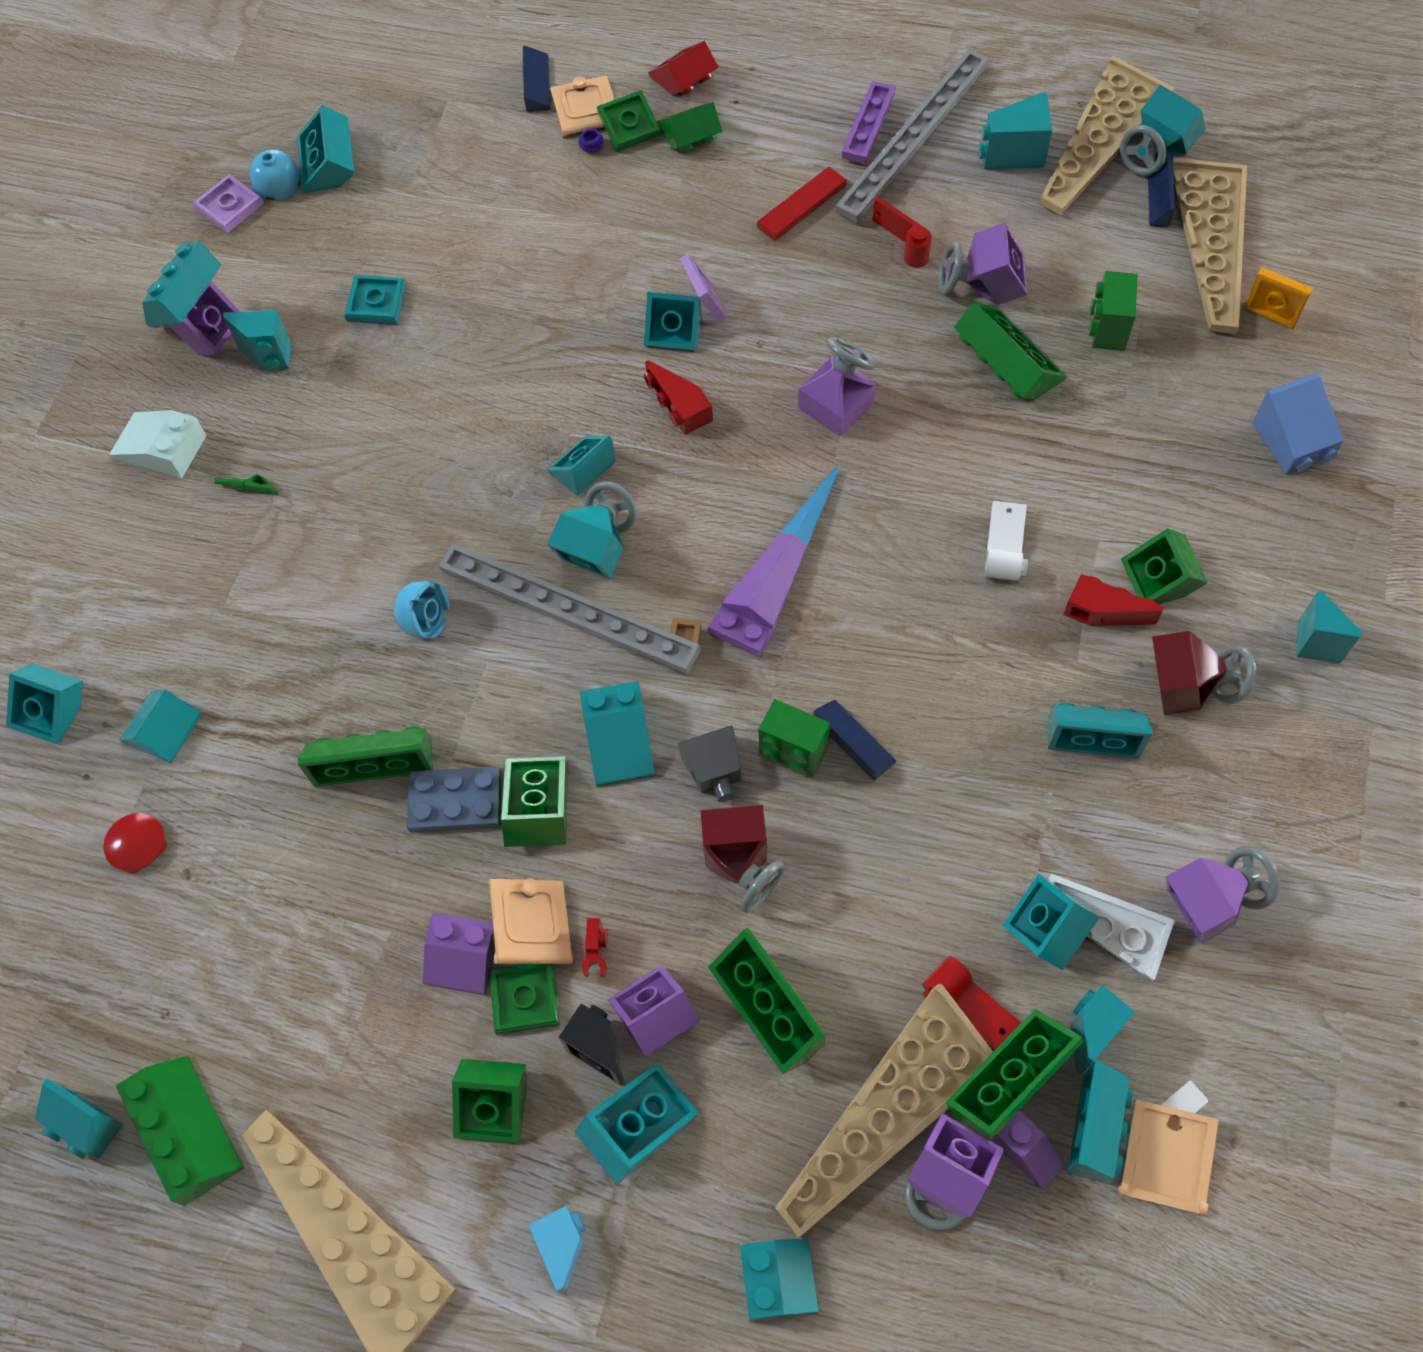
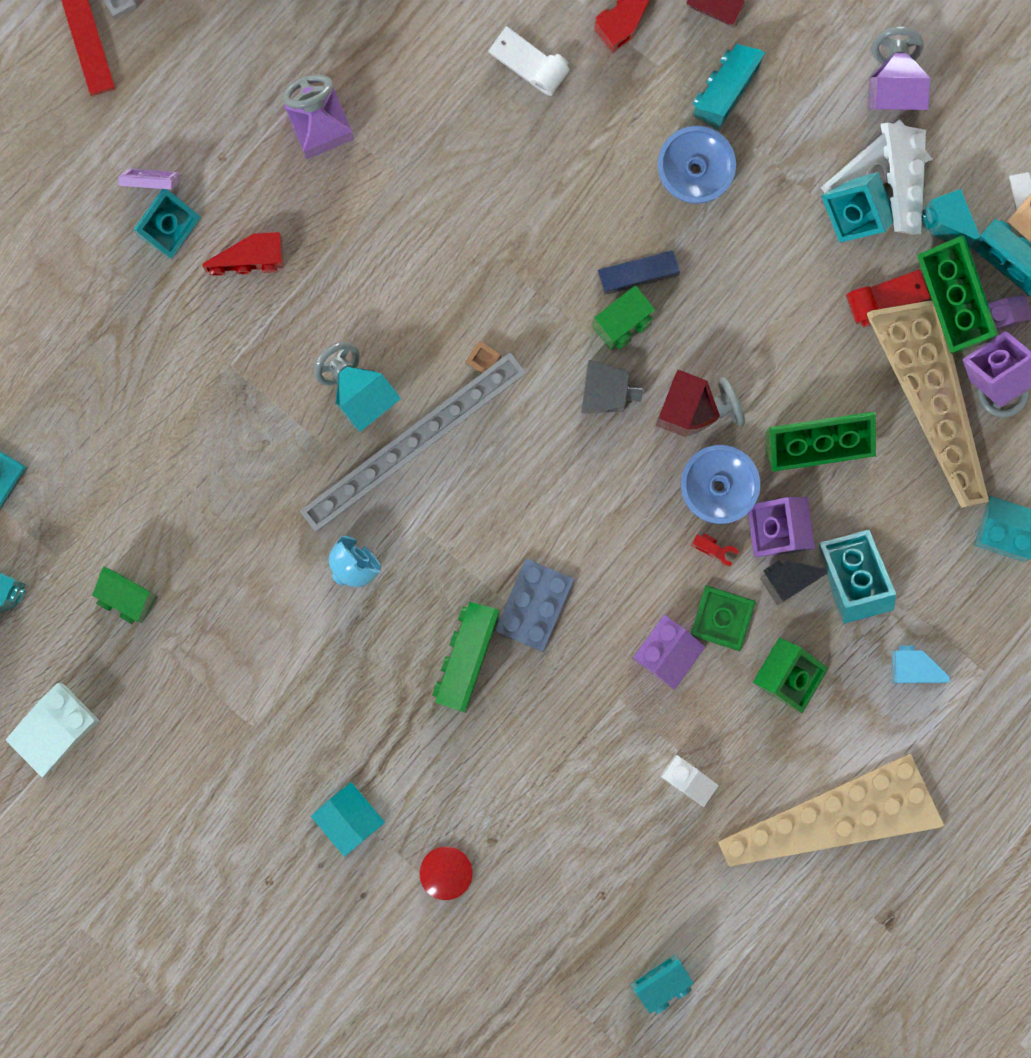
camera: 70 degrees left, 20 degrees up
(42, 702) = (279, 908): teal slope -> none
(179, 1129) = (703, 909): green slope -> none
(248, 484) = (137, 669): green hand -> none
(306, 437) = (123, 595): none -> green slope
(323, 1042) = (689, 780): none -> white slope
(533, 927) = (675, 588): light nougat container -> none
(534, 802) = (570, 542): green slope -> none
(584, 463) = (269, 367): teal slope -> none
(617, 733) = (545, 453): teal slope -> none
(660, 899) = (731, 469): none -> medium blue dish
(756, 602) = (482, 288): medium lavender plate -> none
(997, 719) = (700, 148): none -> medium blue dish
(1123, 950) = (906, 175): none -> white wing

